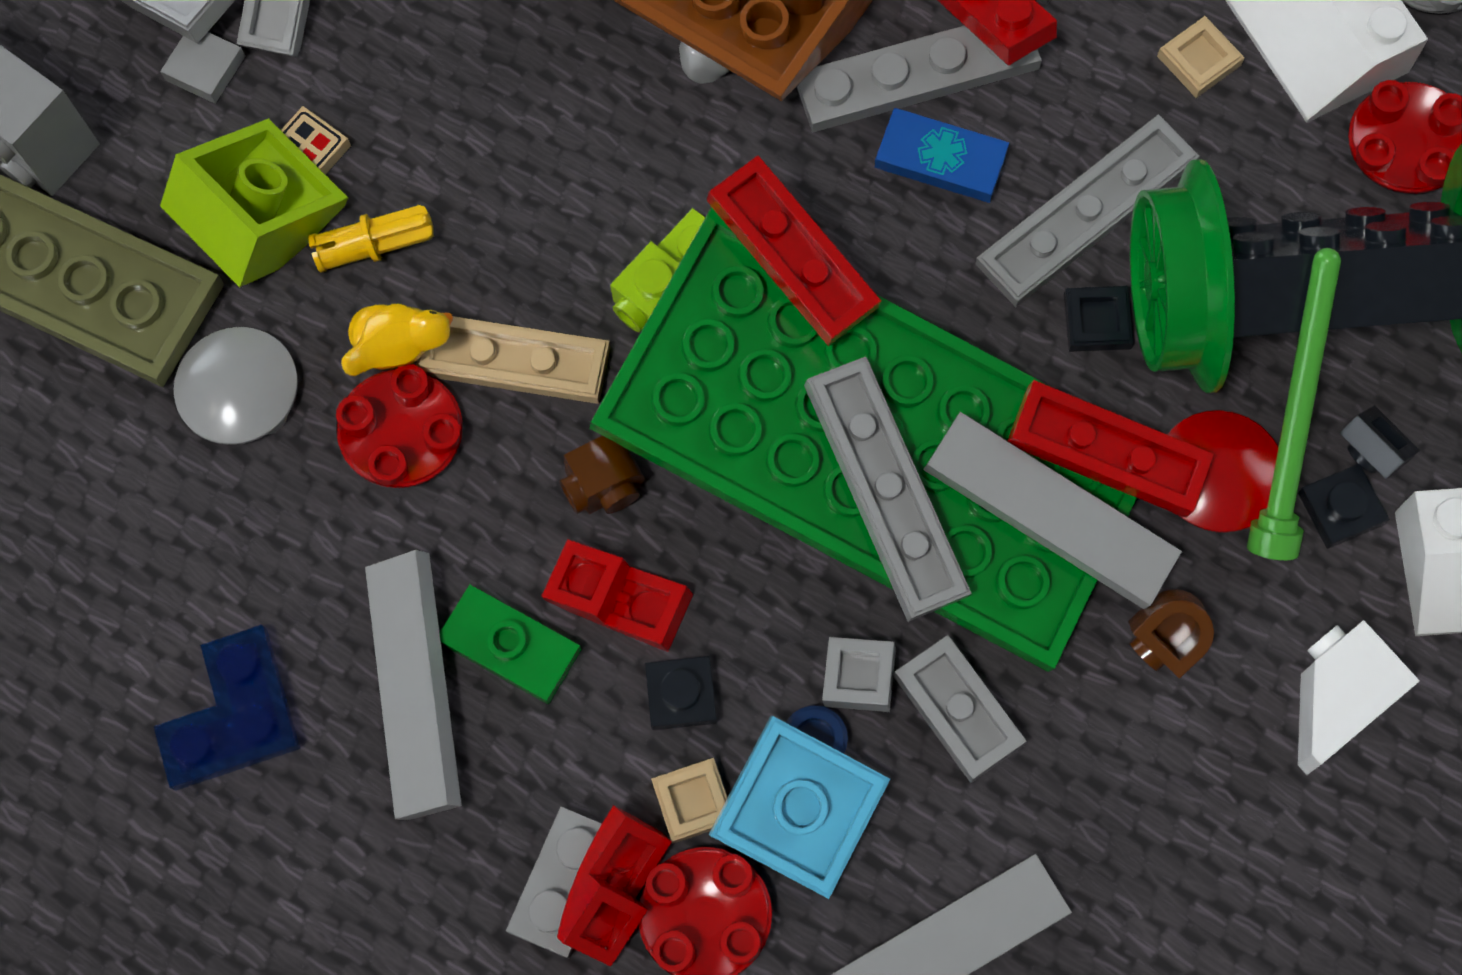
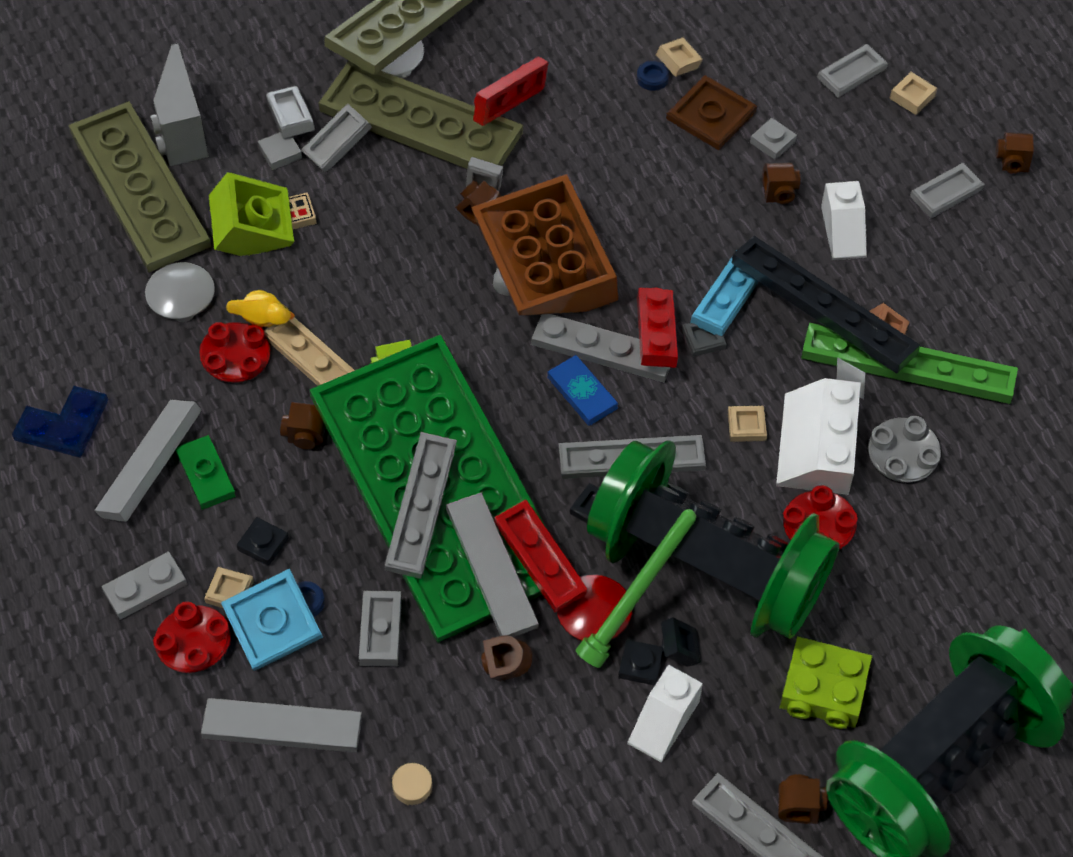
camera: 30 degrees right, 15 degrees down
(371, 237) = (289, 265): yellow axle -> none
(603, 900) = (160, 595): red slope -> none
(616, 595) = (270, 483): red slope -> none
(793, 250) = (459, 373): red plate -> none
(859, 674) = (347, 583): light grey plate -> none
(1187, 907) = (412, 784): none -> tan tile
(1346, 690) = (564, 739): white slope -> none

